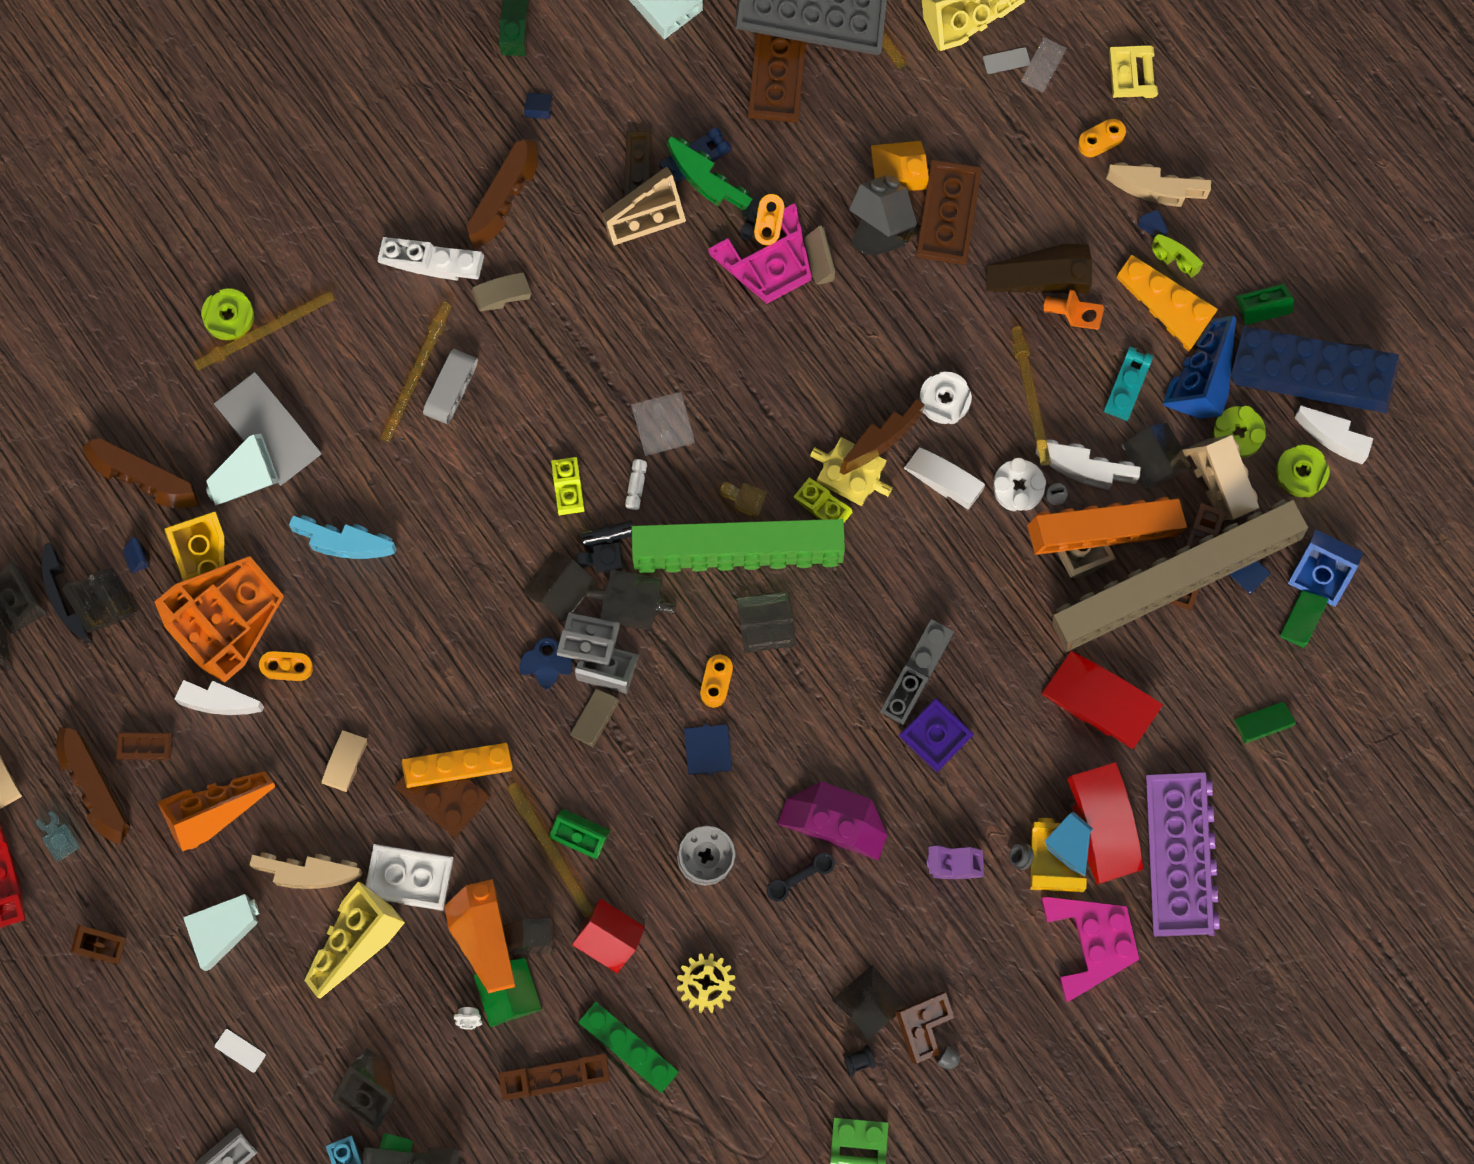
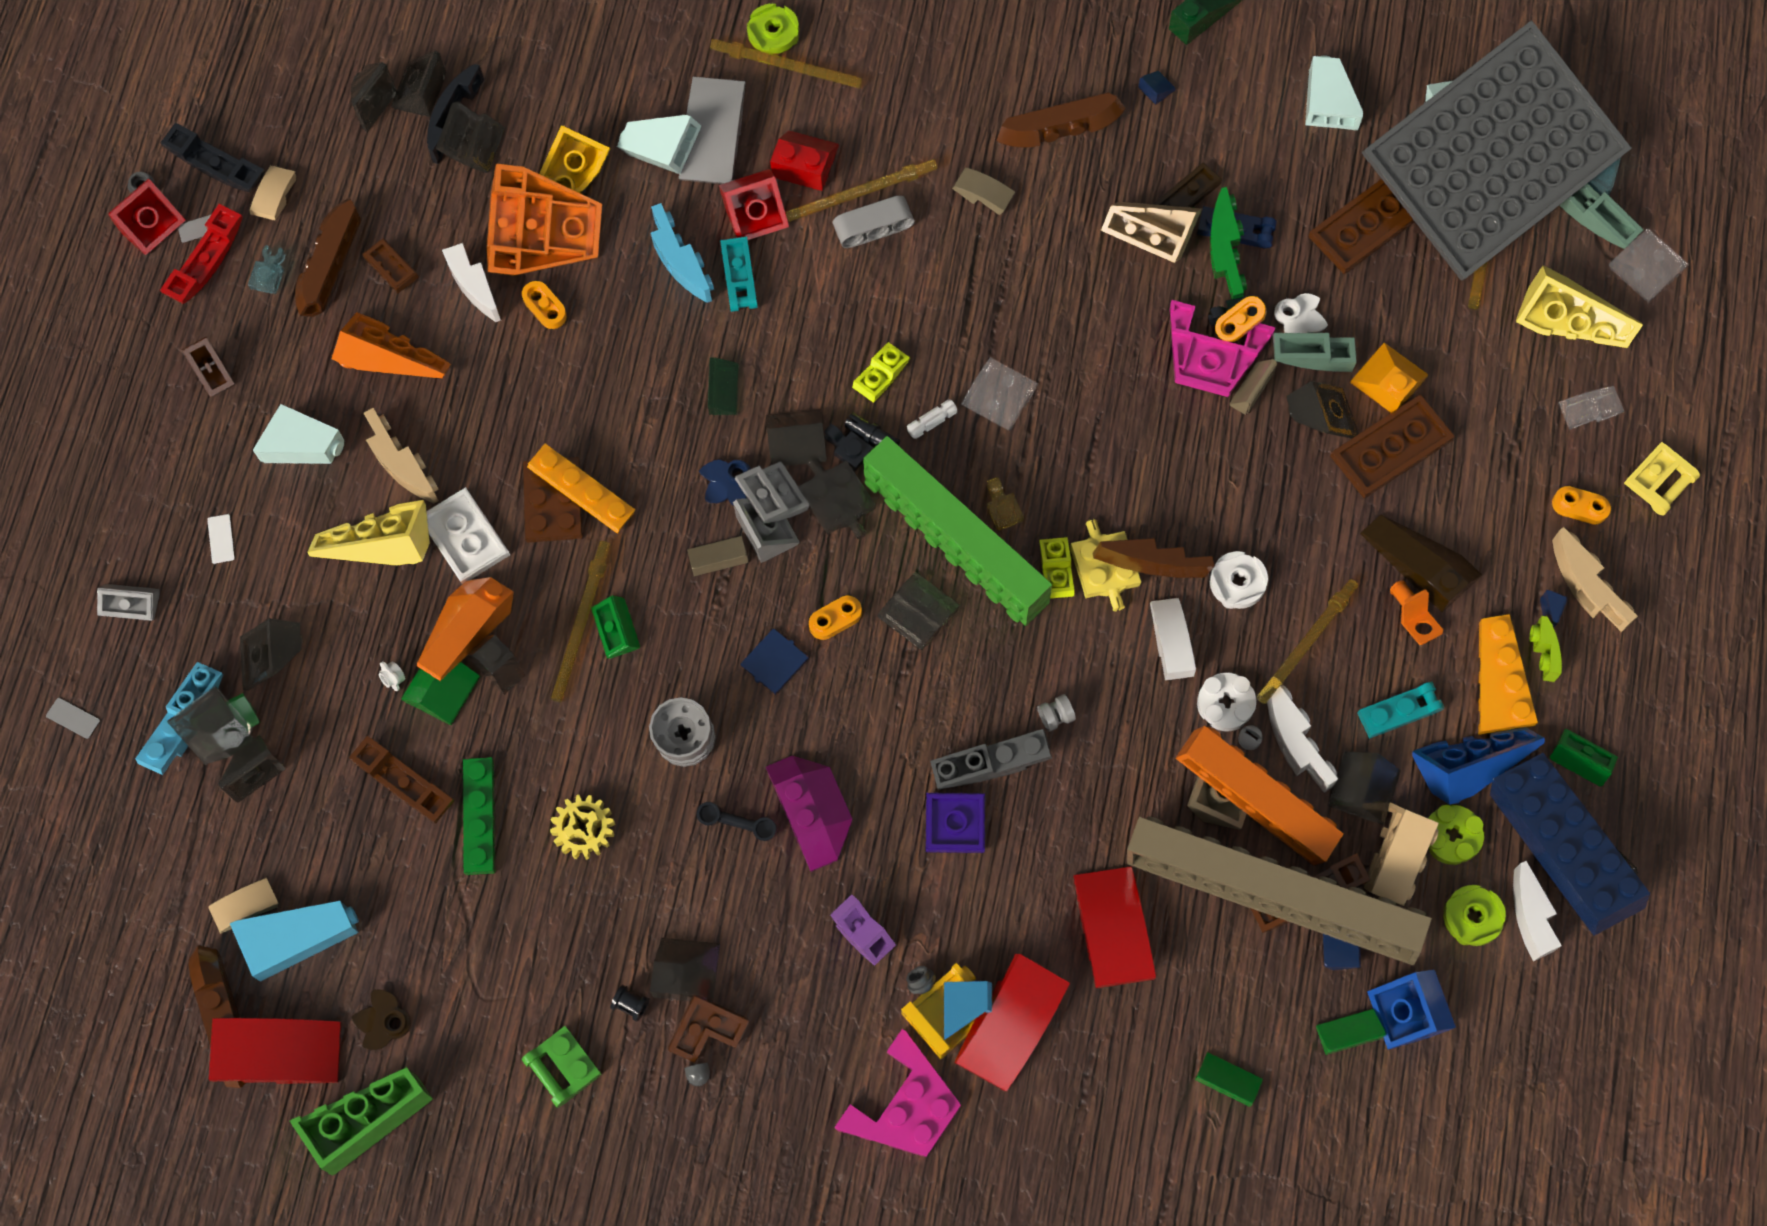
camera: 50 degrees right, 5 degrees down
(113, 461) = (596, 94): reddish brown brick -> none
(135, 556) = (530, 133): dark blue slope -> none
(344, 761) = (507, 409): tan slope -> none
(353, 387) = (803, 159): none -> red slope
(355, 454) = (754, 205): none -> red slope
(397, 512) = (738, 273): none -> teal plate
(430, 260) = (956, 121): white slope -> none
(472, 601) = (722, 387): none -> clear green slope
(609, 936) = (553, 719): red slope -> none
(804, 179) = (1304, 316): none -> white plate
(836, 195) = (1315, 351): none -> sand green slope
(884, 205) = (1342, 389): dark grey slope -> none
(924, 600) = (1056, 712): none -> light grey wheel
(1006, 60) = (1564, 378): light grey sticker -> none
(1182, 854) = (1048, 1112): medium lavender bracket -> none

